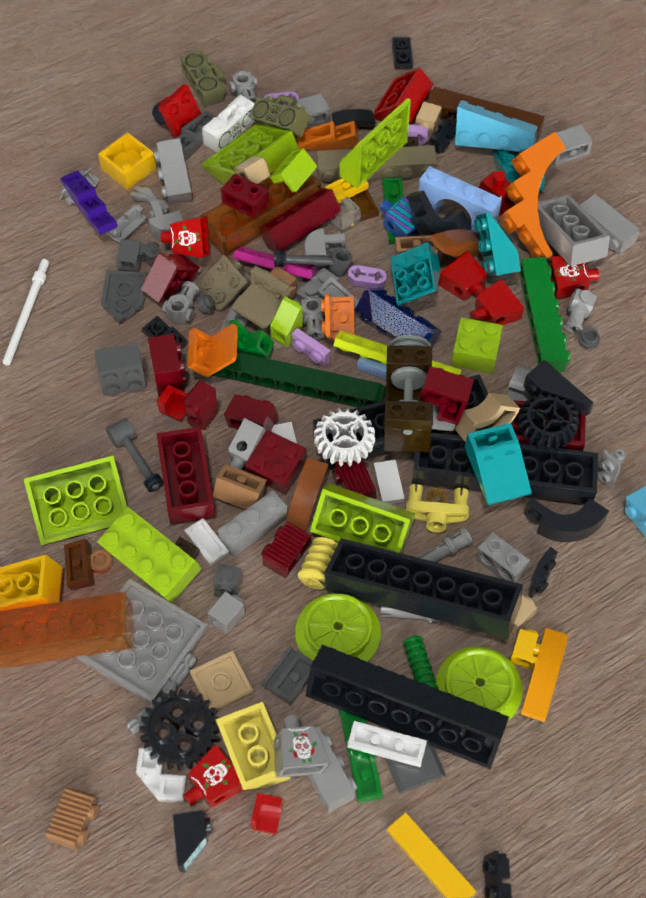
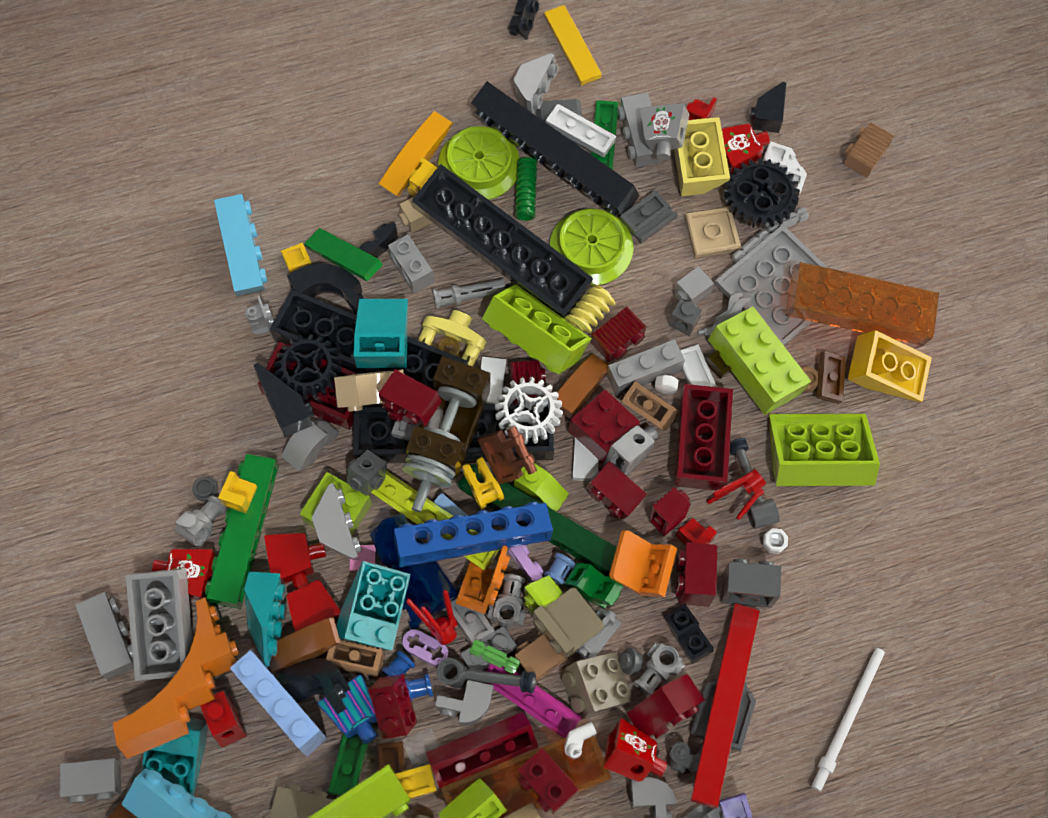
camera: 165 degrees left, 10 degrees up
(105, 416) = (775, 541): none -> white tile
(124, 279) = (725, 707): none -> red tile
(134, 442) = (750, 483): none -> red plant
(183, 597) = (734, 308): none -> light grey hair
(228, 514) = (666, 384): none -> white tile
(232, 227) = (576, 738): none -> white arm
(281, 349) = (559, 568): none -> medium blue bush
(311, 271) = (494, 656): none -> bright green axle
(315, 403) = (542, 488): none -> lime slope
(349, 397) = (501, 457): none -> copper plate
(357, 282) = (441, 627): none -> red plant
(359, 378) = (483, 492): none -> yellow piece
(362, 249) = (419, 687): none -> blue bush
(375, 223) = (392, 706): none -> dark red brick
(382, 257) = (399, 665): none -> blue bush
(401, 305) = (464, 544): none -> blue brick
(442, 321) = (367, 554): none -> bright pink tile
(455, 786) = (534, 81): none -> light grey slope
(462, 367) = (366, 473): none -> dark grey brick
(468, 312) = (334, 525): none -> light grey slope
(558, 322) = (237, 493): none -> yellow panel
(567, 543) = (343, 254): none -> green tile
(611, 544) = (296, 257): none -> yellow tile

